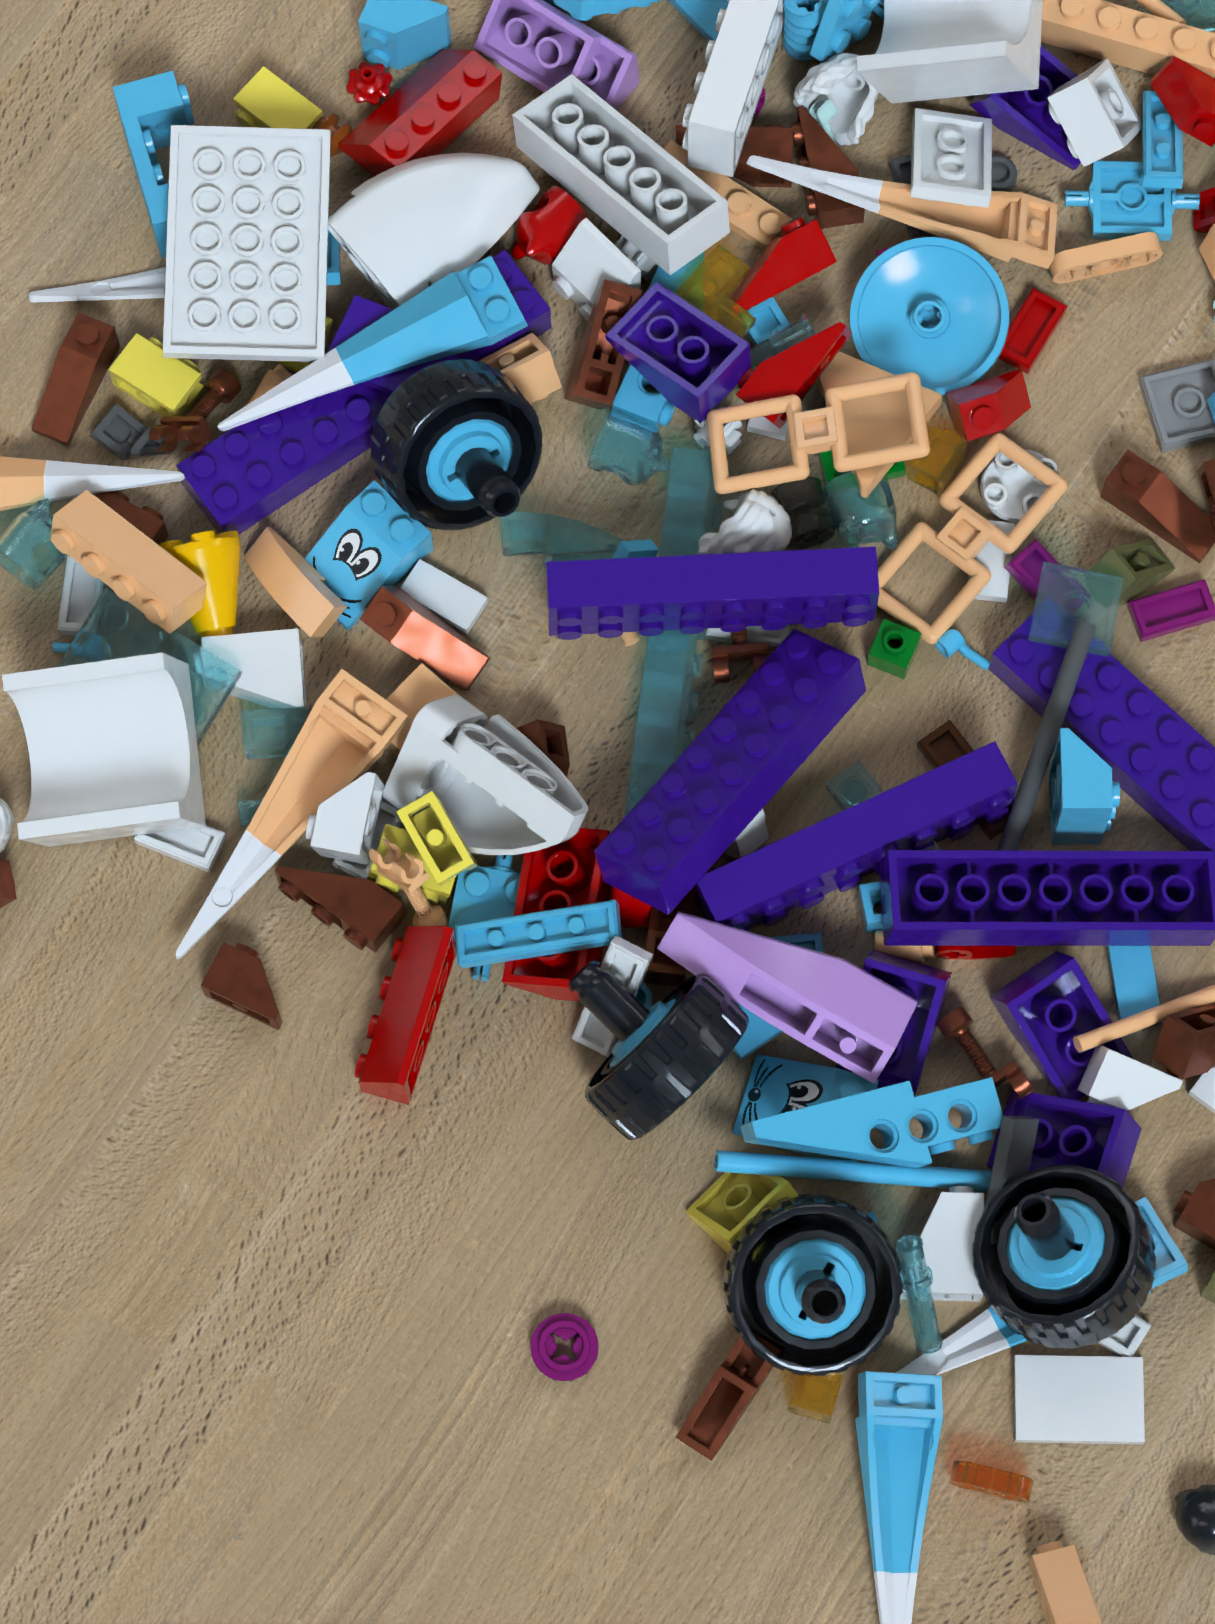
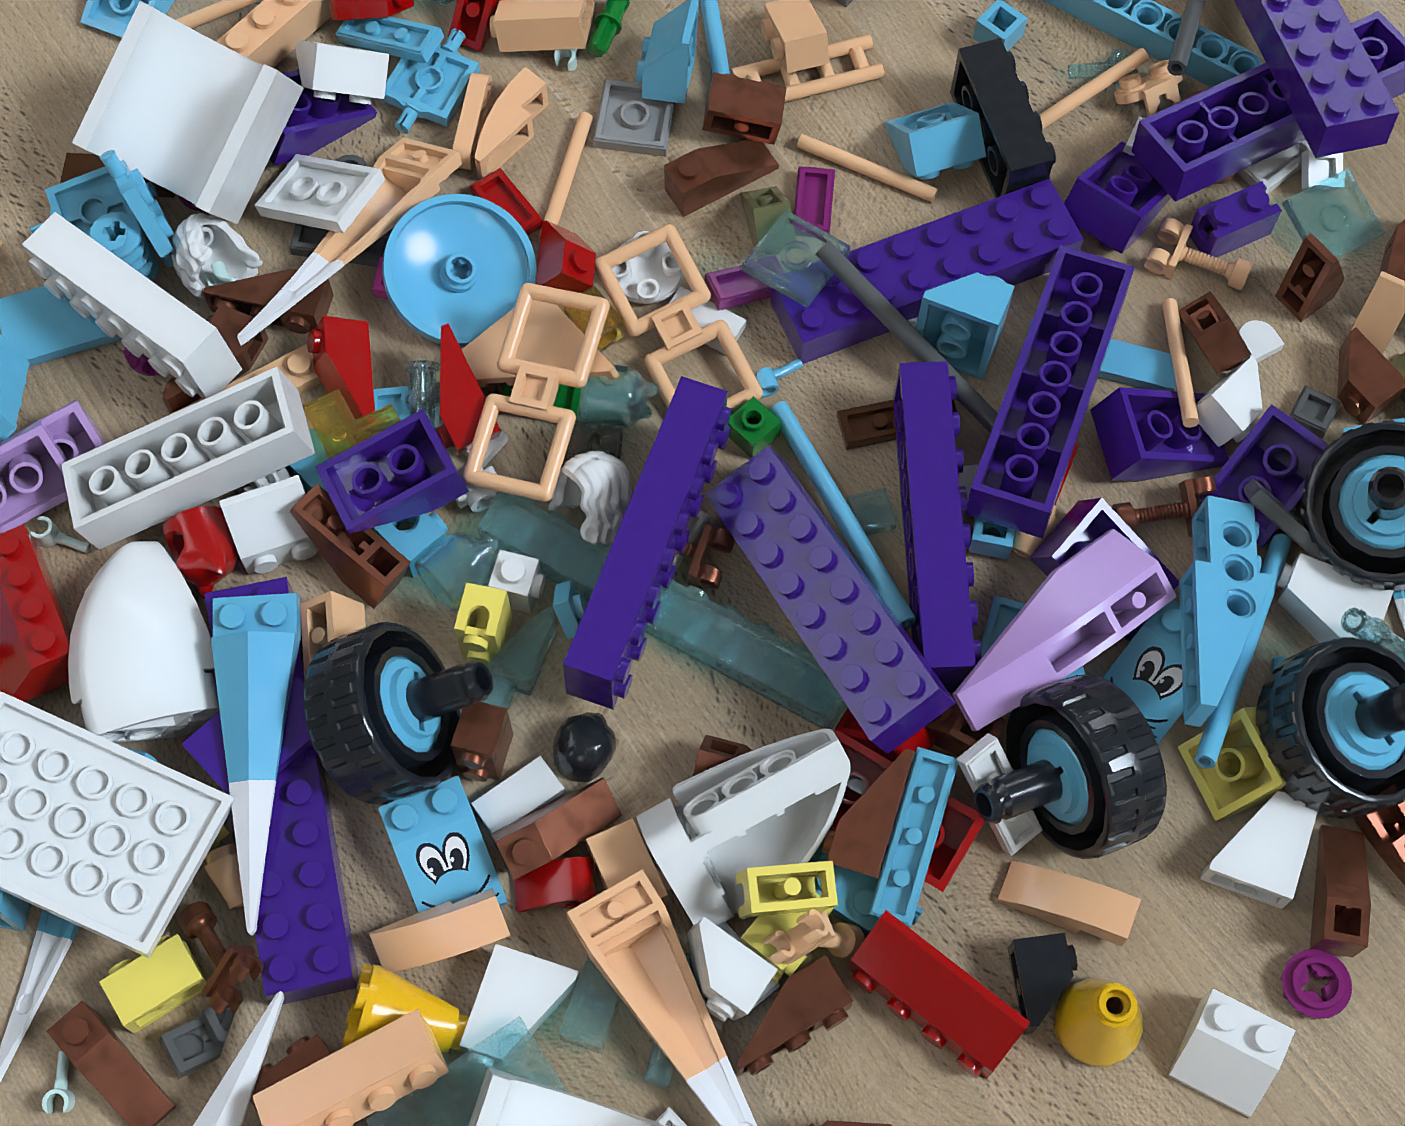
camera: 70 degrees left, 5 degrees down
(42, 353) = (60, 1087): none -> light aqua hand
(377, 661) = (558, 882): none -> red panel
(452, 1178) = (1090, 1029): none -> yellow cone
(466, 1099) = (1040, 973): none -> black slope
(466, 1287) = (1231, 1052): none -> white slope
(471, 540) = (482, 741): none -> copper brick
(513, 103) = (54, 535): none -> light aqua hand
(513, 630) = (583, 747): none -> black hair
(522, 887) = (867, 827): none -> copper slope
(546, 1101) = (1070, 901): none -> light nougat slope
(580, 491) = (483, 622): none -> light yellow brick
(640, 504) = (520, 578): none -> white brick
(660, 1337) = (1341, 893): none -> copper slope
(670, 1260) = (1266, 853): none -> white slope
(839, 757) = (842, 514): none -> medium azure piece
(1096, 369) = (568, 168): none -> light nougat bar
(1116, 290) = (510, 121): none -> light nougat slope
(1162, 1170) = (1314, 411): none -> dark grey tile

